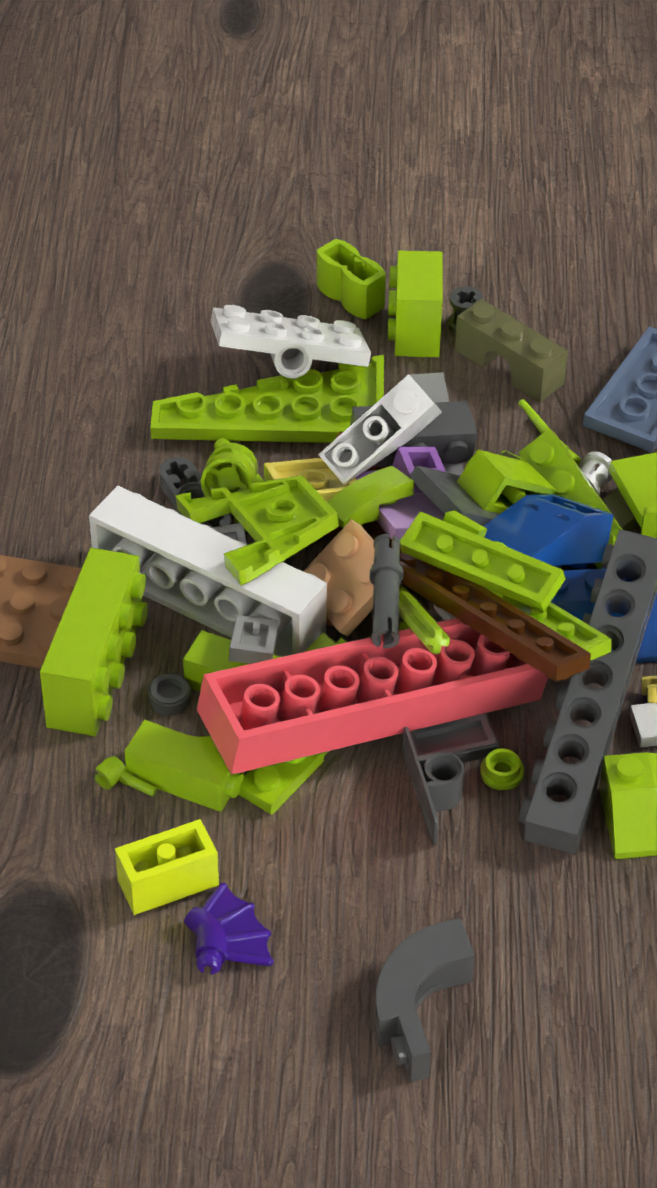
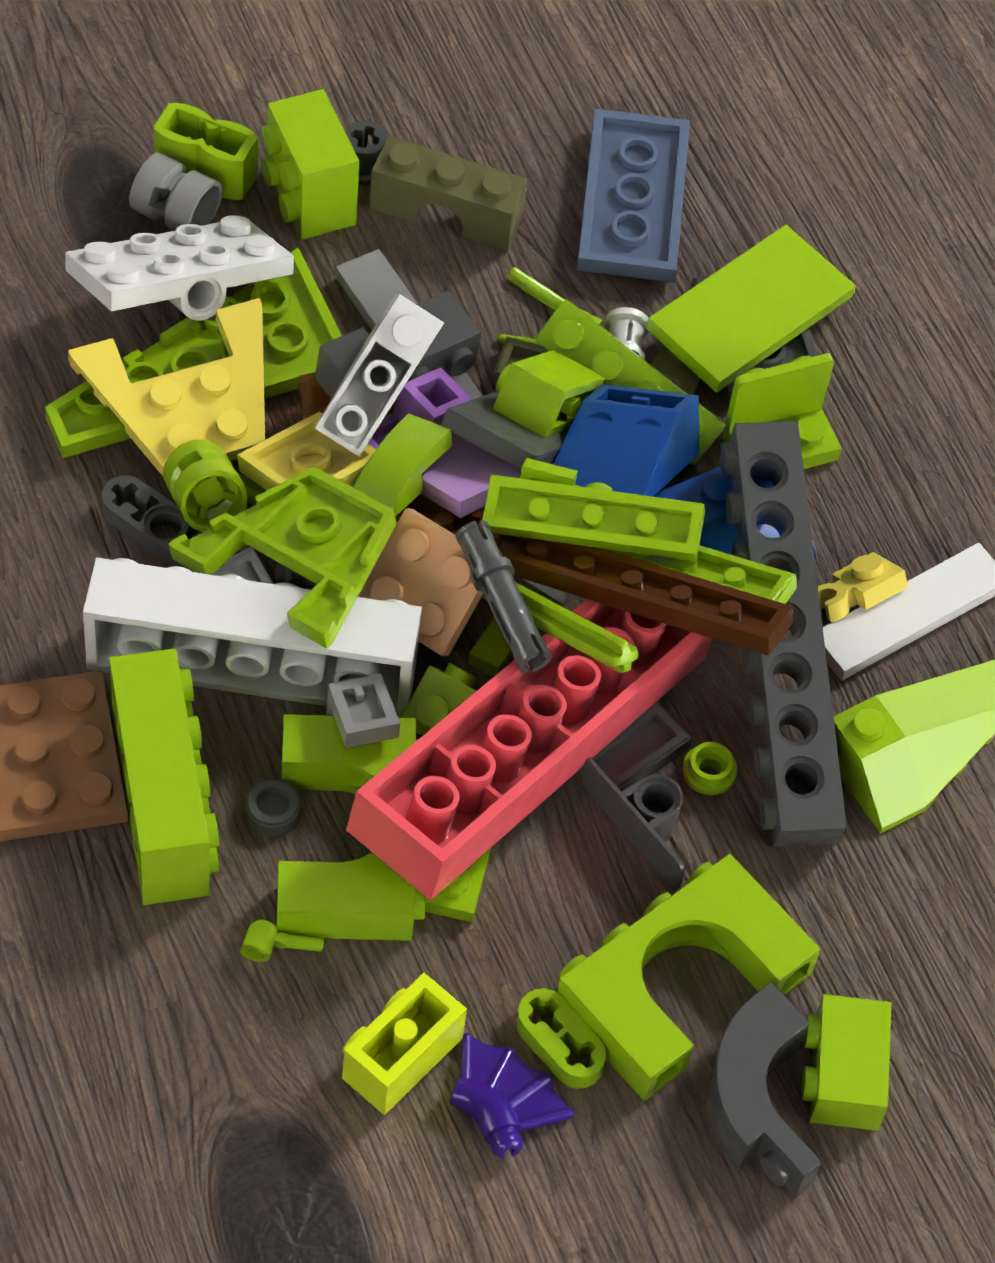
camera: 30 degrees left, 10 degrees up
(266, 428) = (203, 402): none -> light yellow wing
(298, 907) = (552, 1046): none -> lime beam
(313, 295) = (169, 192): none -> light grey wheel
(447, 860) = (715, 910): none -> lime arch
(496, 998) = (848, 1063): none -> lime brick

